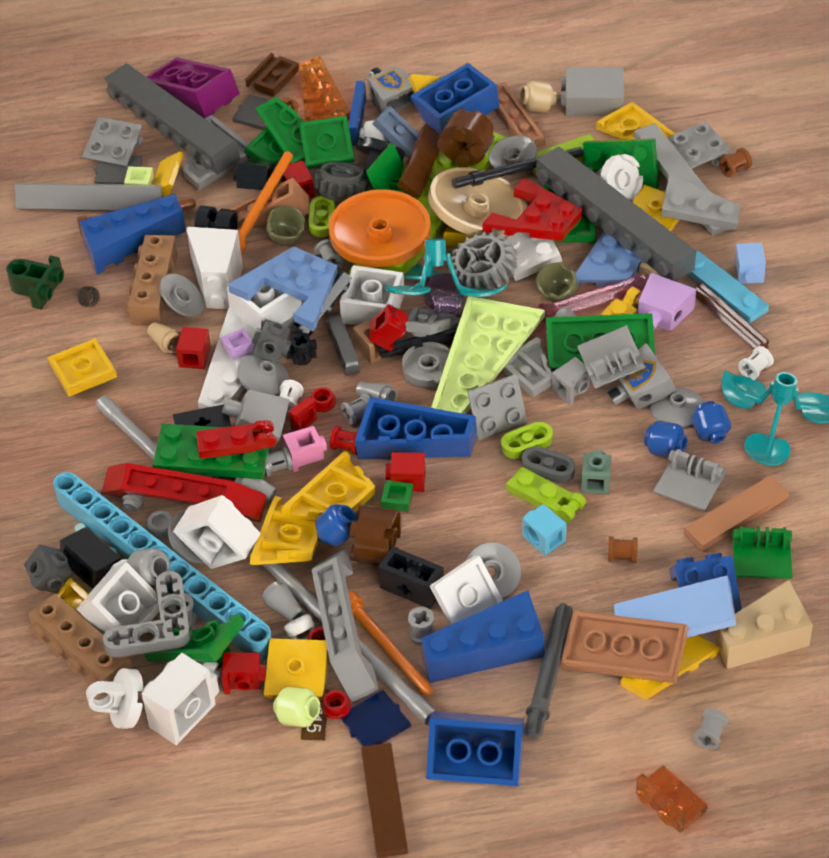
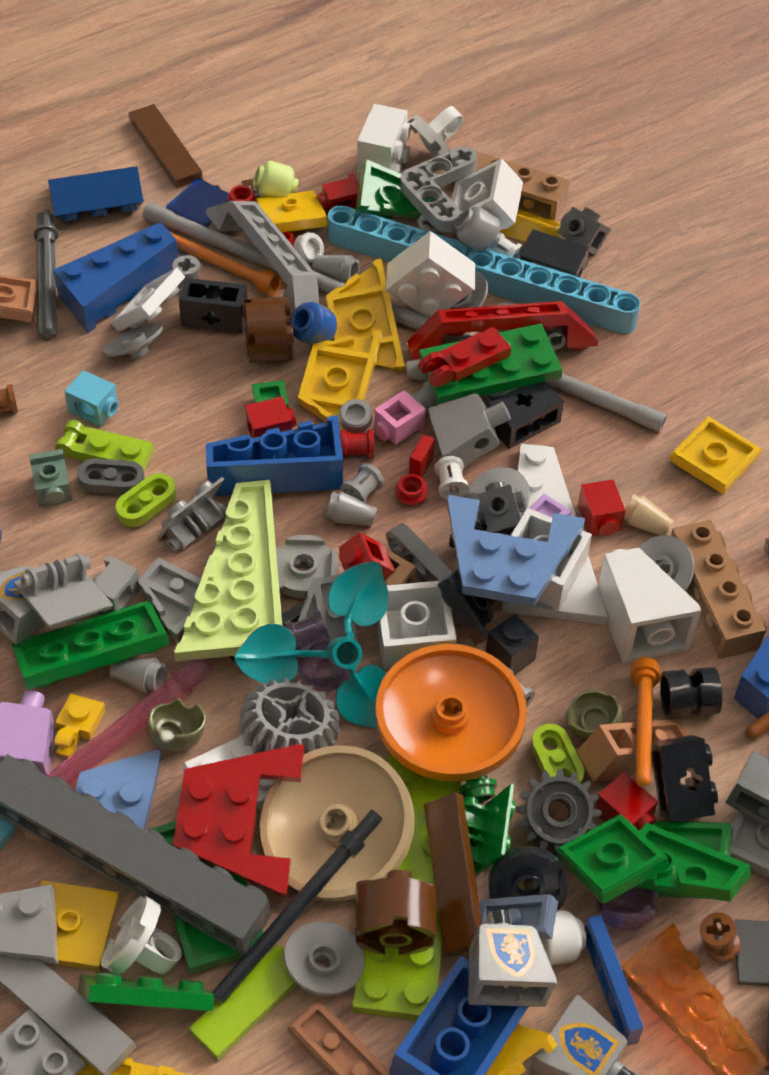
camera: 155 degrees right, 5 degrees up
(337, 454) = (355, 416): none -> light grey tile
(418, 99) = (508, 965): none -> light grey torso

